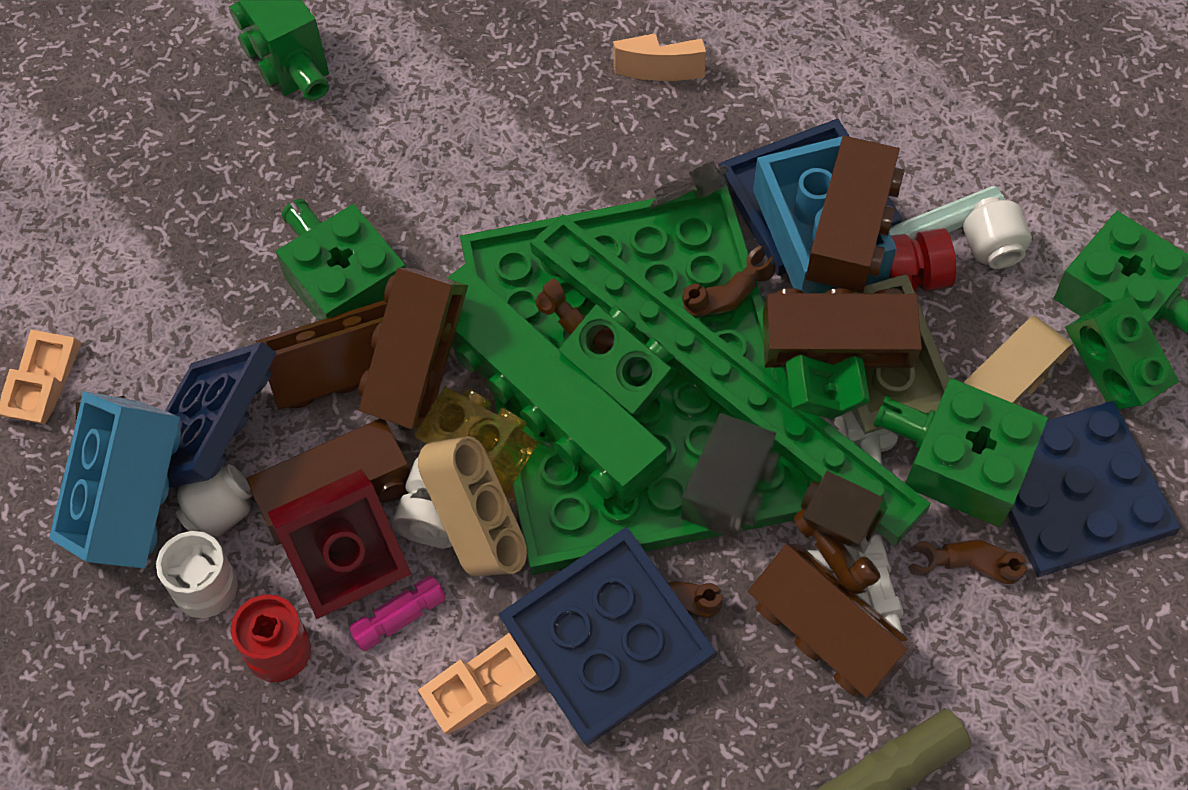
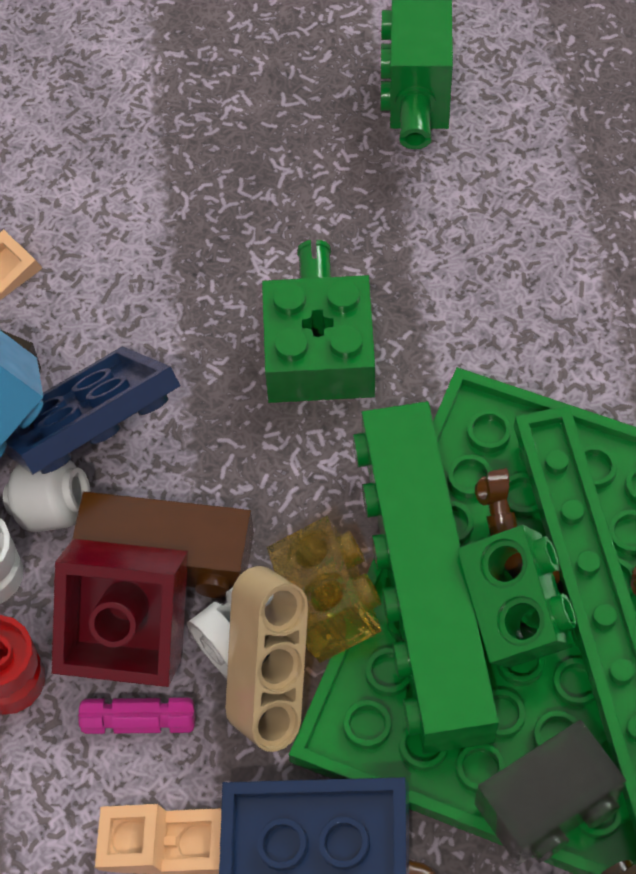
camera: 35 degrees right, 0 degrees up
(323, 356) = (253, 418): reddish brown brick -> none
(411, 346) = (317, 455): reddish brown brick -> none

